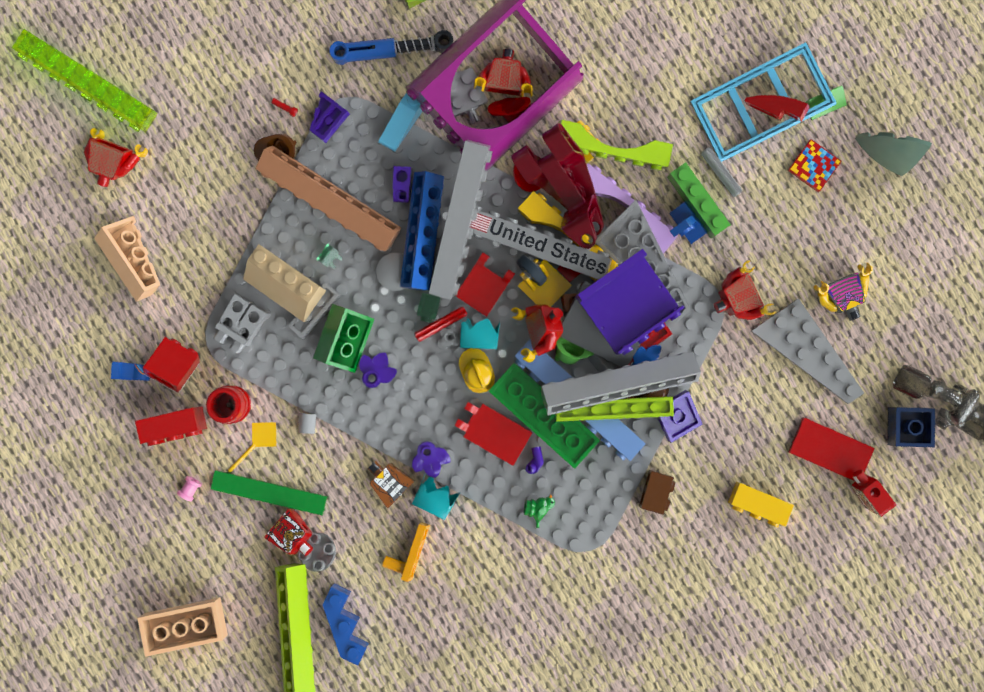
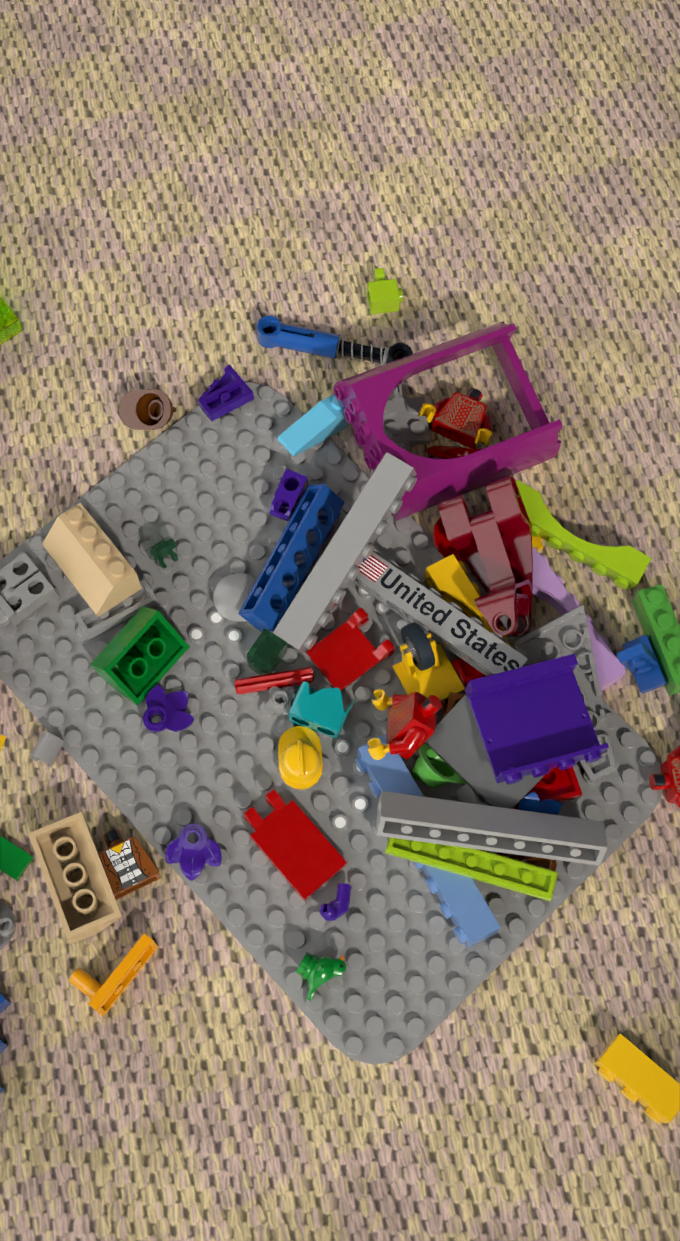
camera: 15 degrees right, 20 degrees down
(293, 111) = (185, 377): red piece -> none
(327, 198) = (190, 483): nougat brick -> none
(360, 503) = (75, 877): none -> tan slope
(434, 500) = (179, 908): teal piece -> none
(524, 399) = (389, 881): green plate -> none
(656, 492) = (495, 1009): reddish brown brick -> none
(684, 419) = (562, 916): plate -> none

